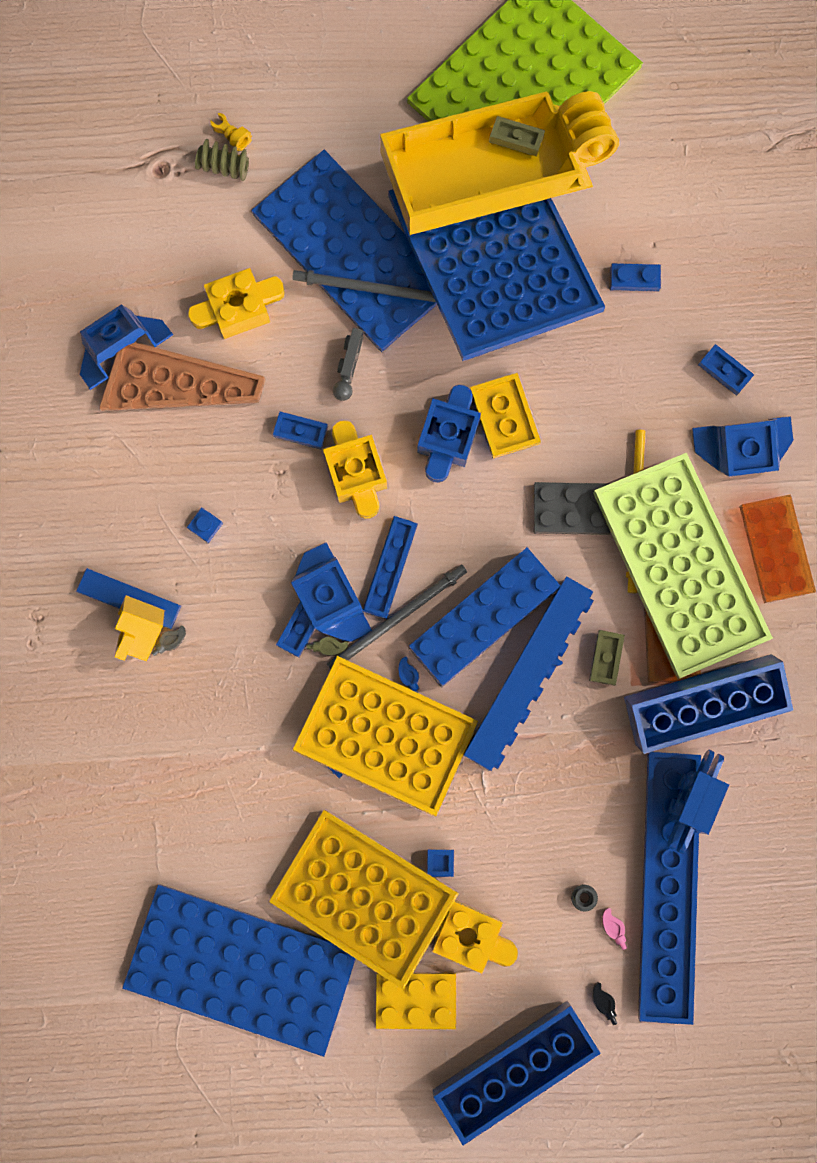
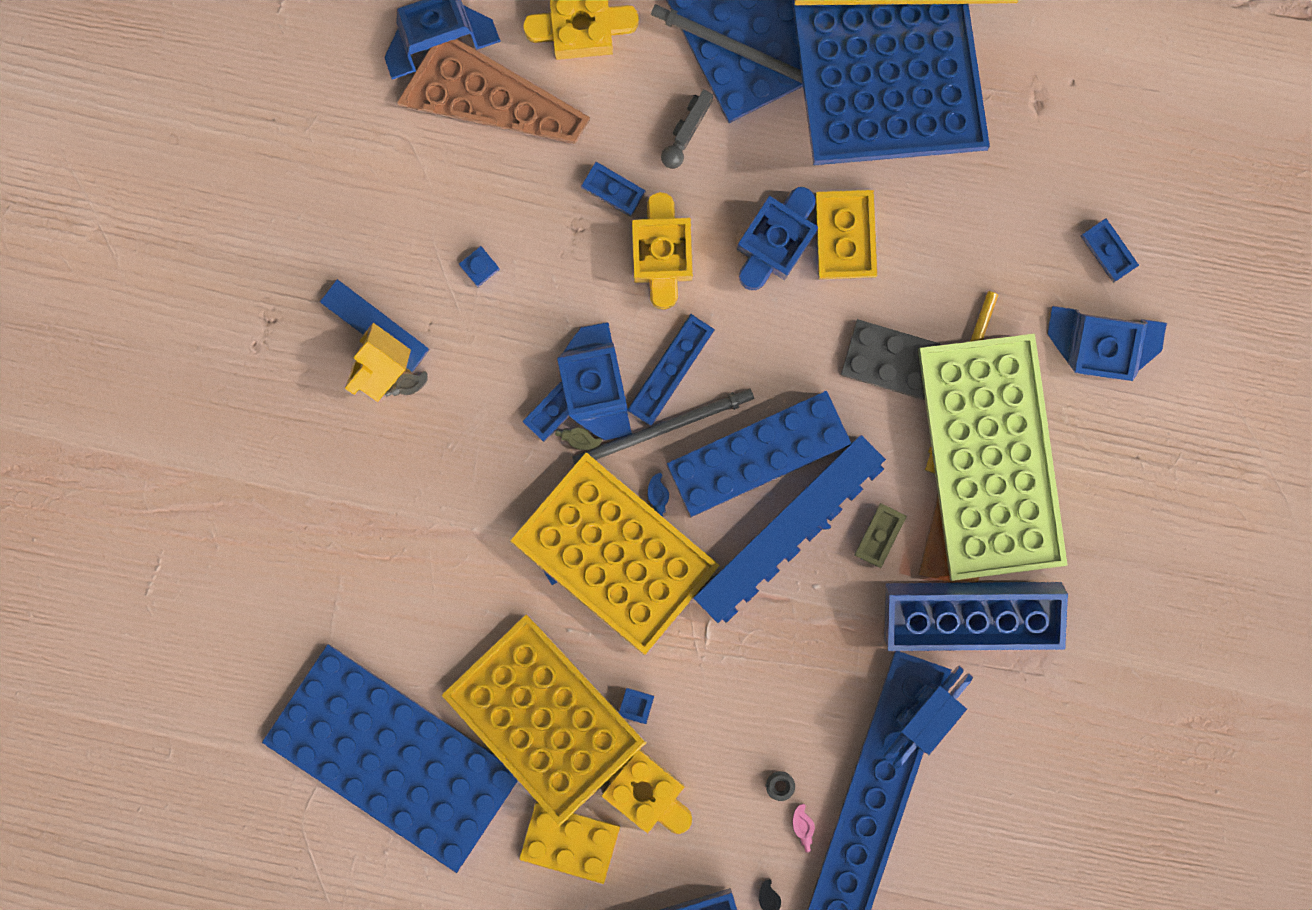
camera: 15 degrees right, 5 degrees up
(635, 277) = (1040, 115): blue plate -> none
(777, 549) = (1105, 467): clear orange plate -> none

